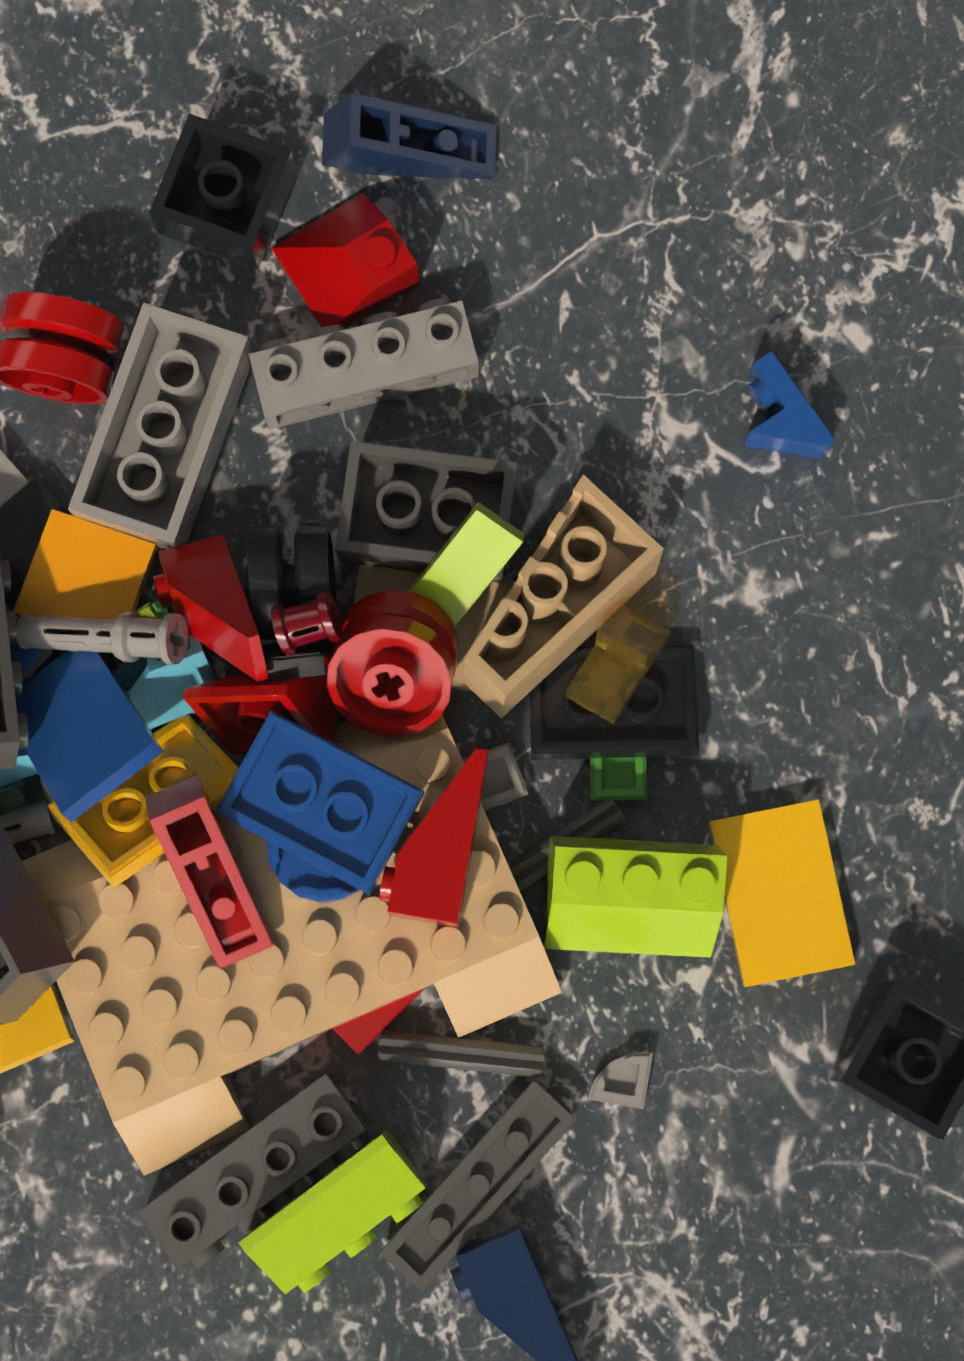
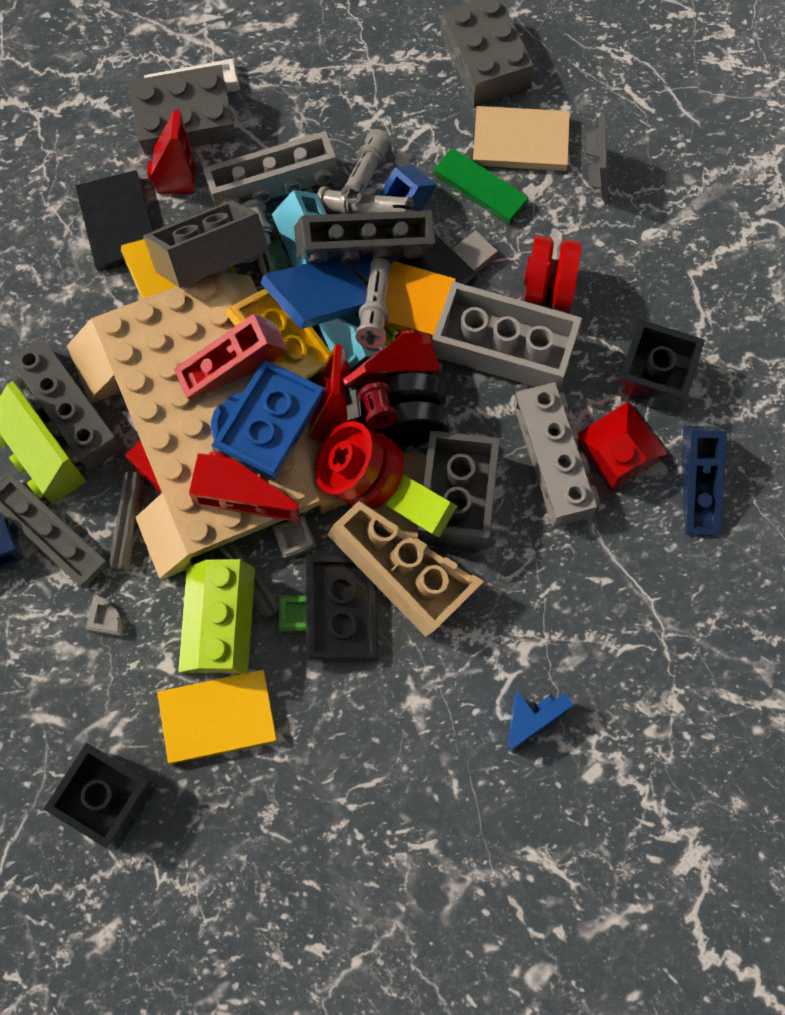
camera: 90 degrees right, 10 degrees down
(617, 663) = (367, 610): clear yellow slope -> none

